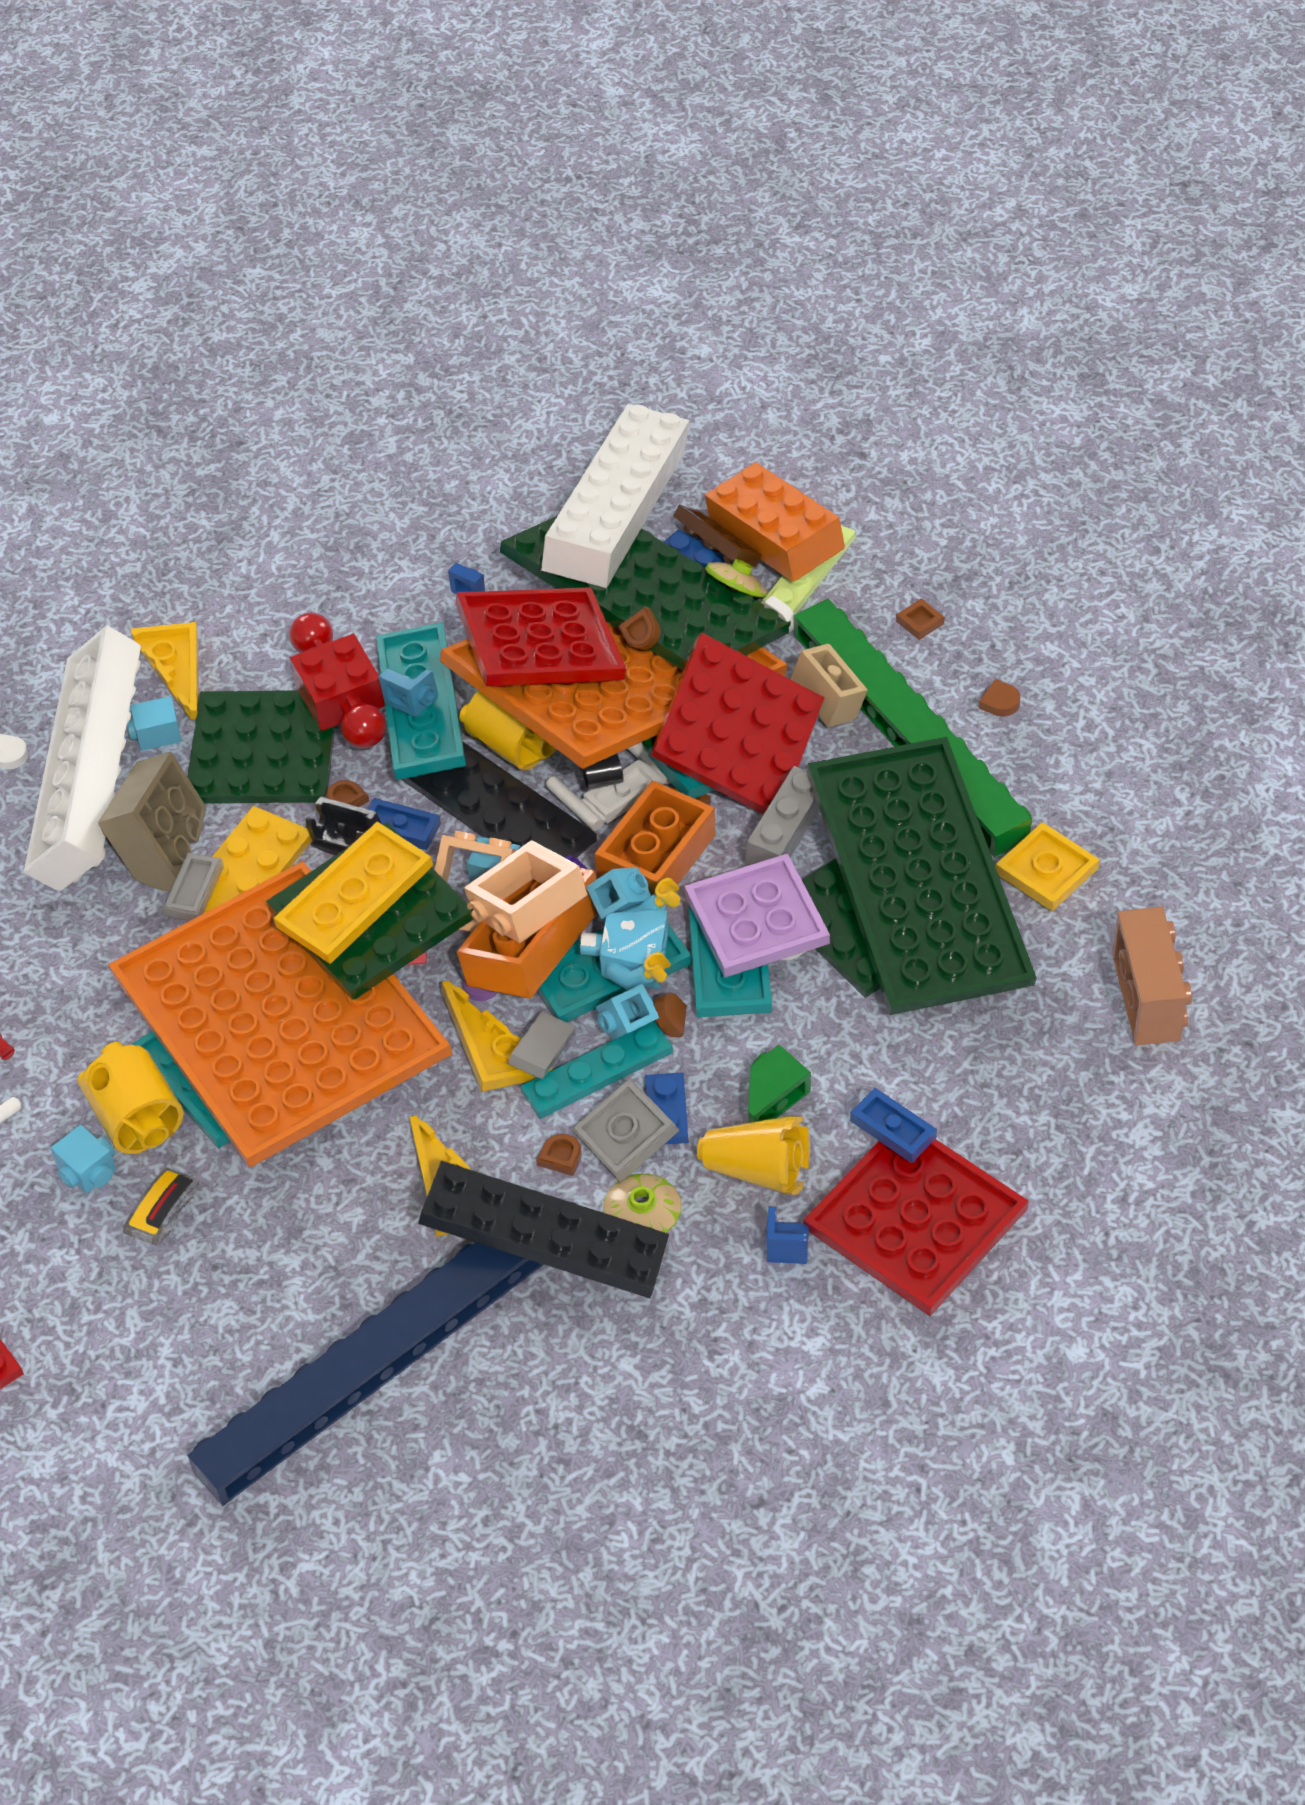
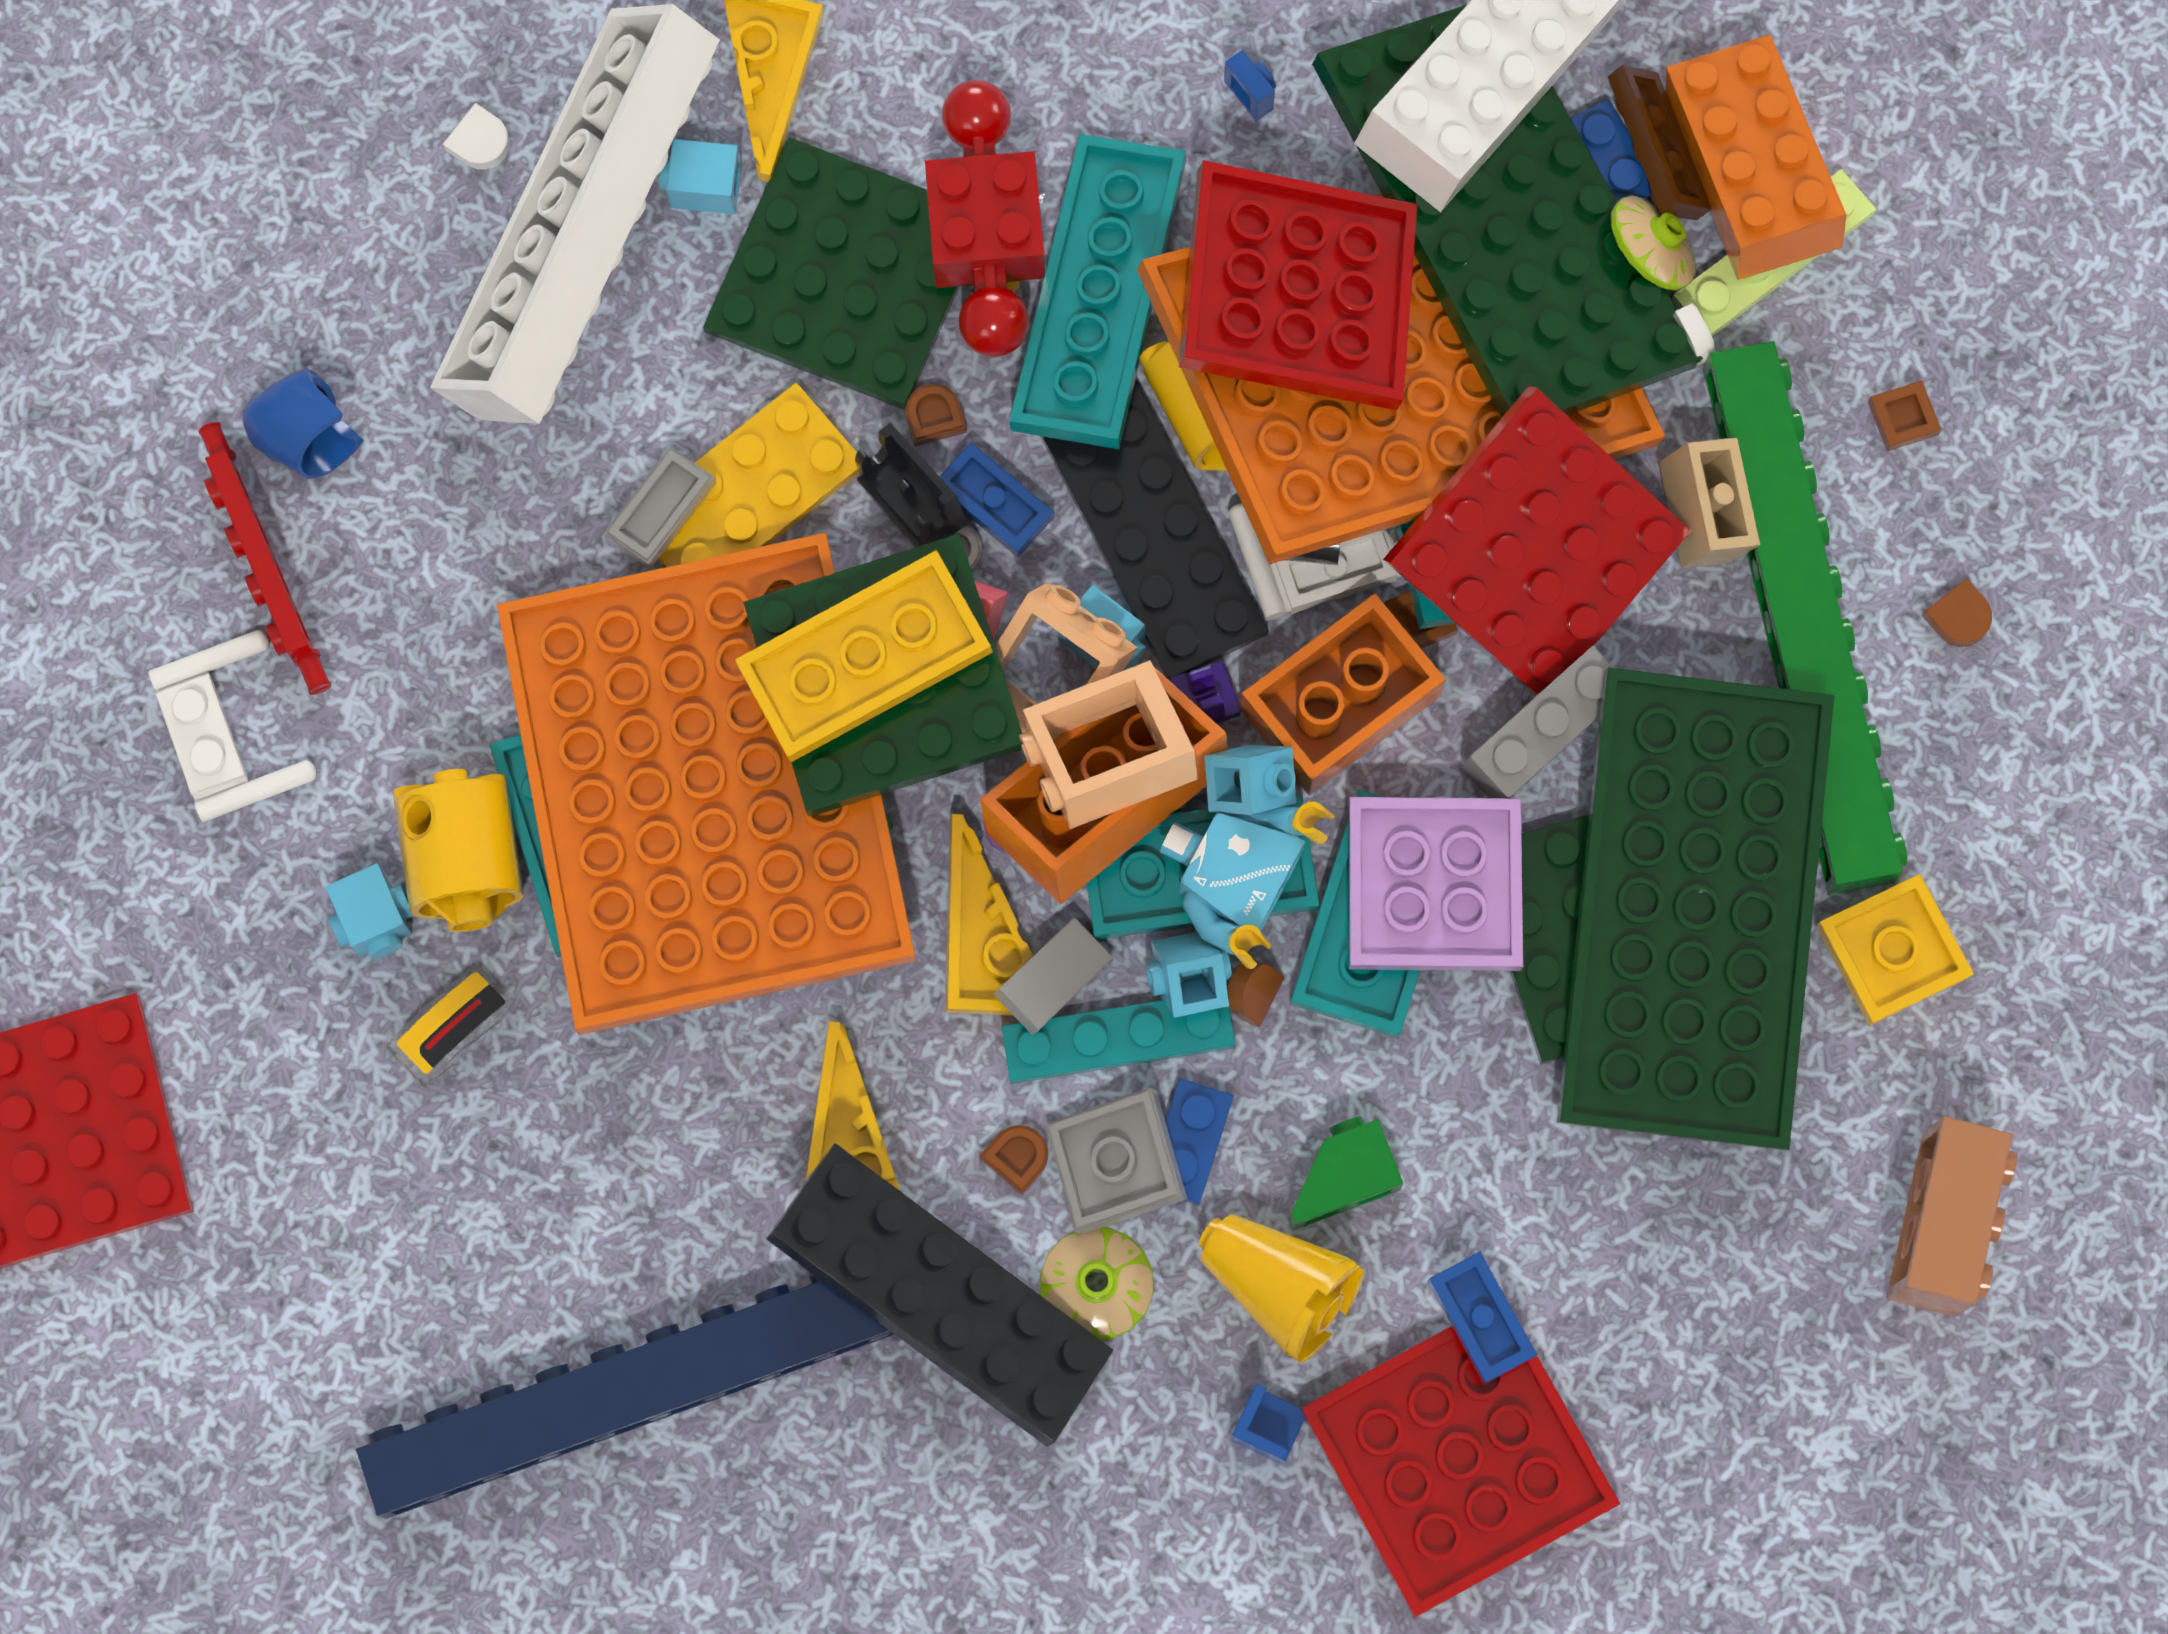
camera: 20 degrees right, 25 degrees up
(154, 820) = (642, 368): dark tan wedge -> none
(408, 694) = (1075, 291): dark azure bracket -> none
(641, 629) = (1460, 319): dark orange tile -> none

